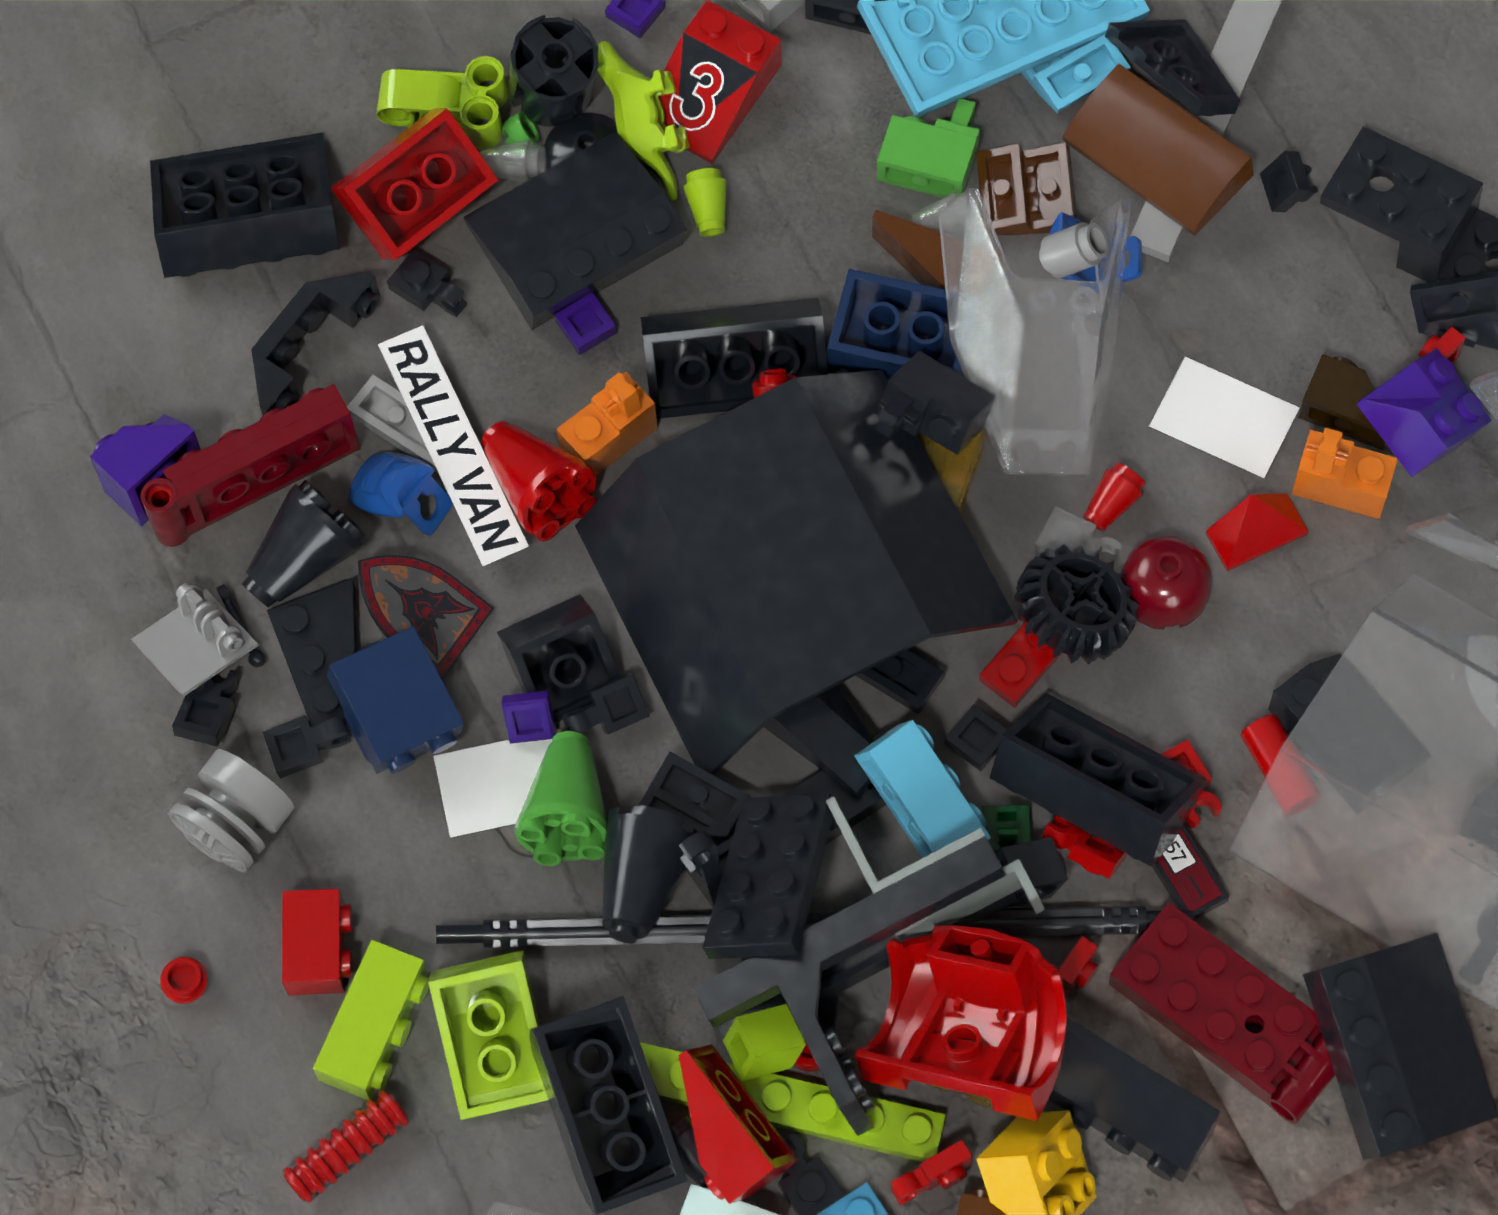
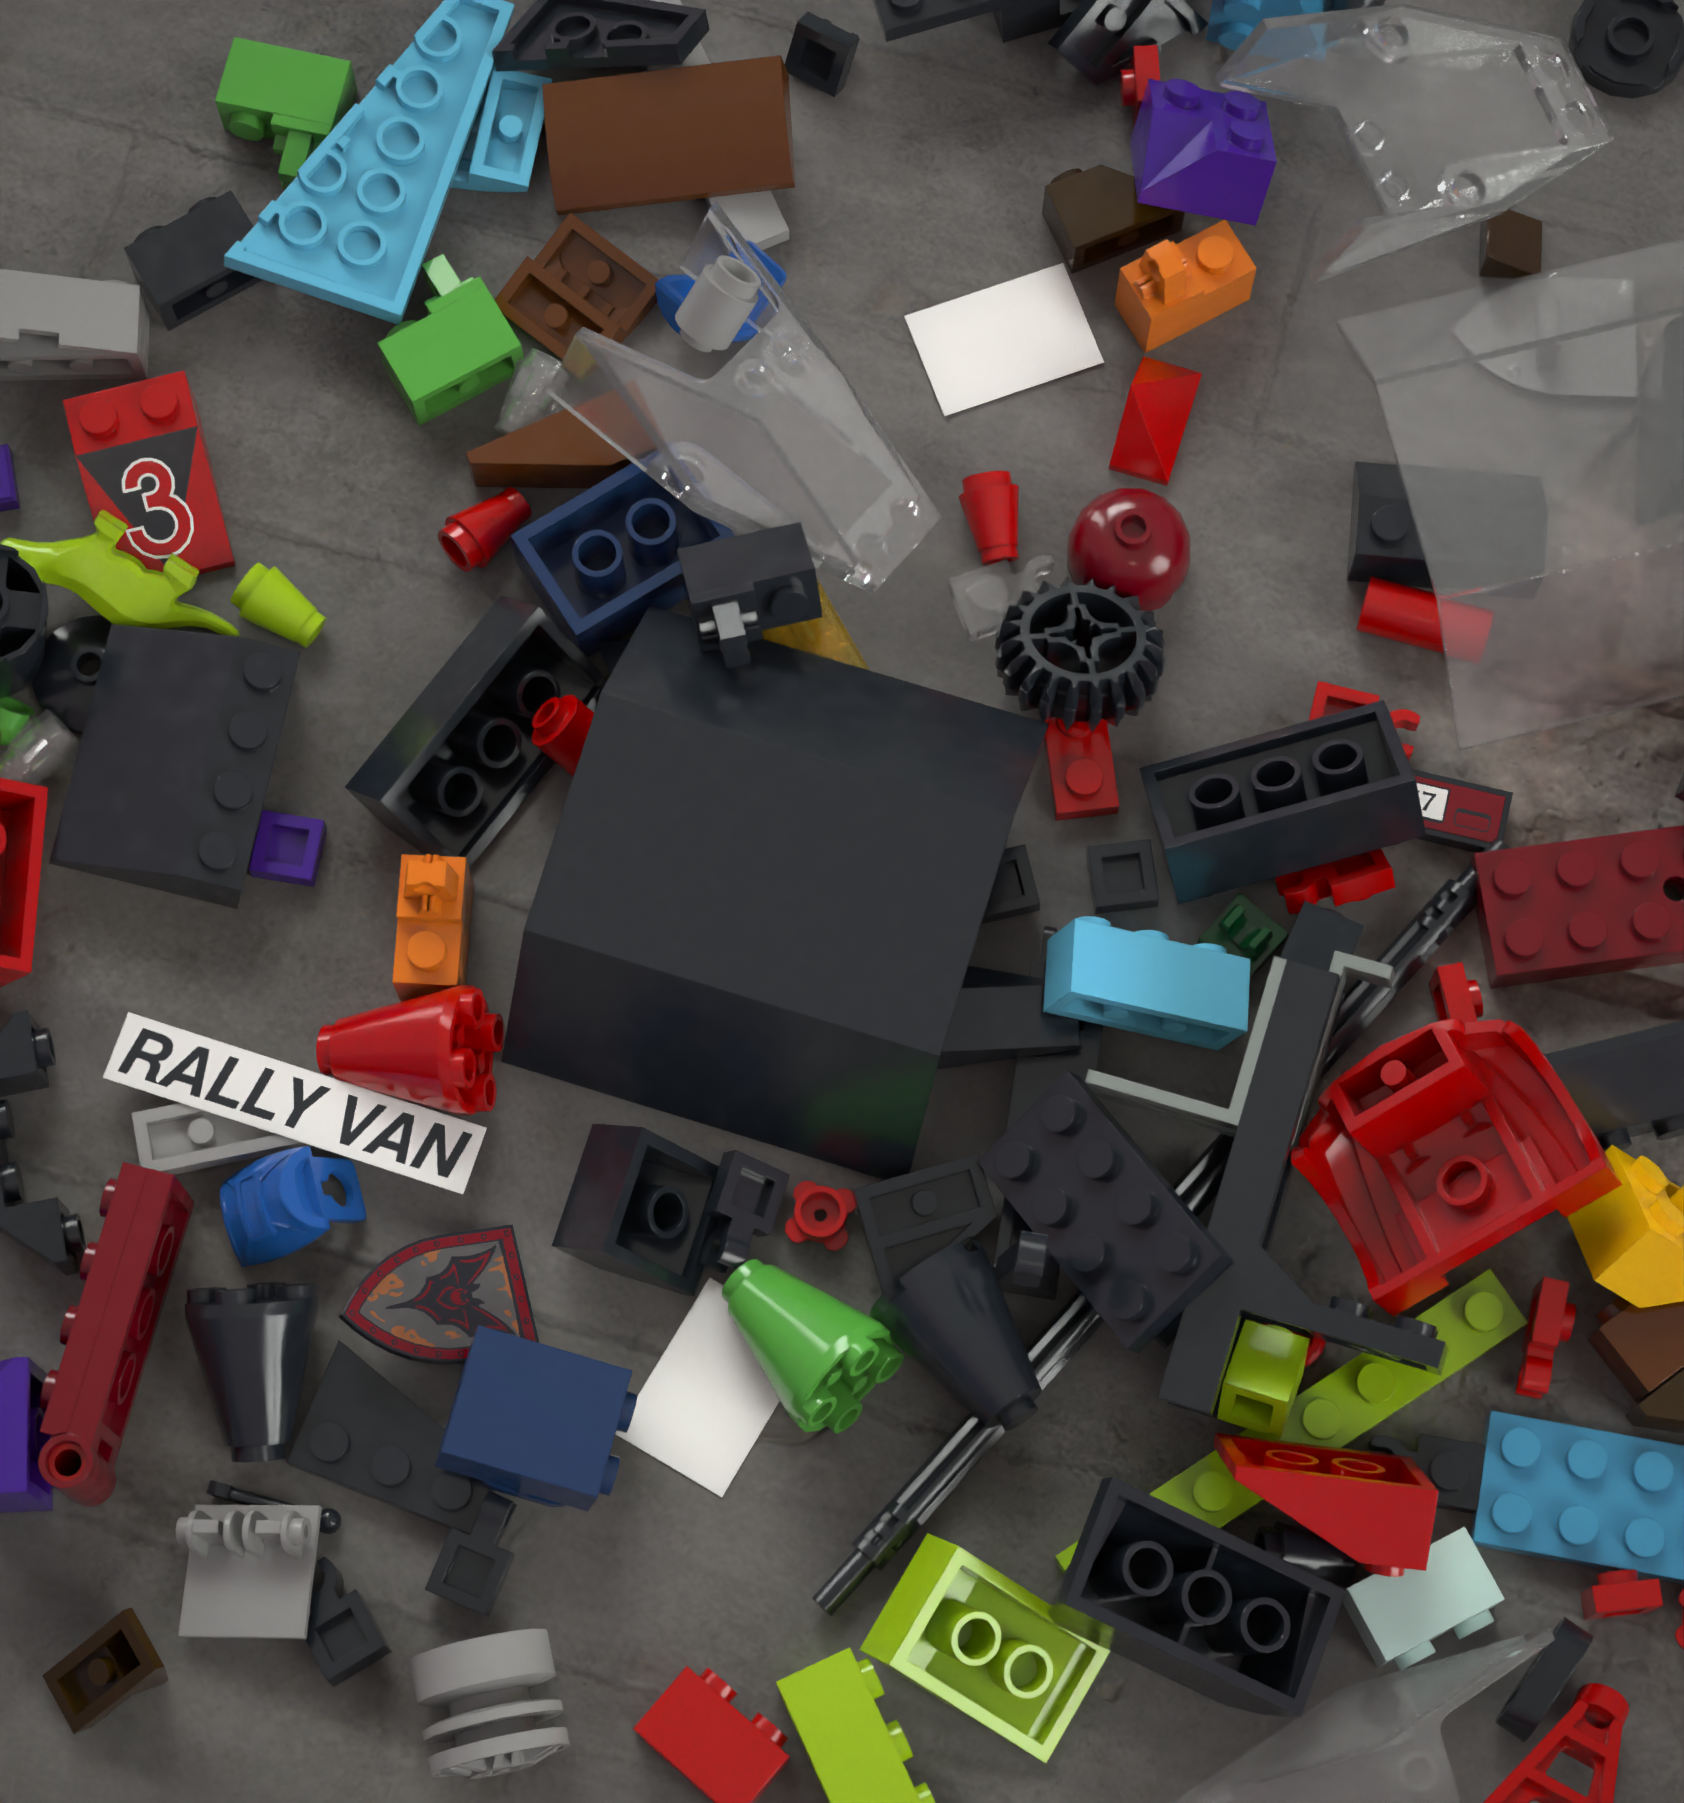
camera: 50 degrees left, 5 degrees up
(82, 619) = (105, 1672): none -> dark brown slope
(425, 281) = (72, 967): black plate -> none
(529, 717) = (675, 1297): dark purple tile -> none
(630, 748) = (811, 1199): none -> red plate
(842, 254) = (482, 530): none -> red cone

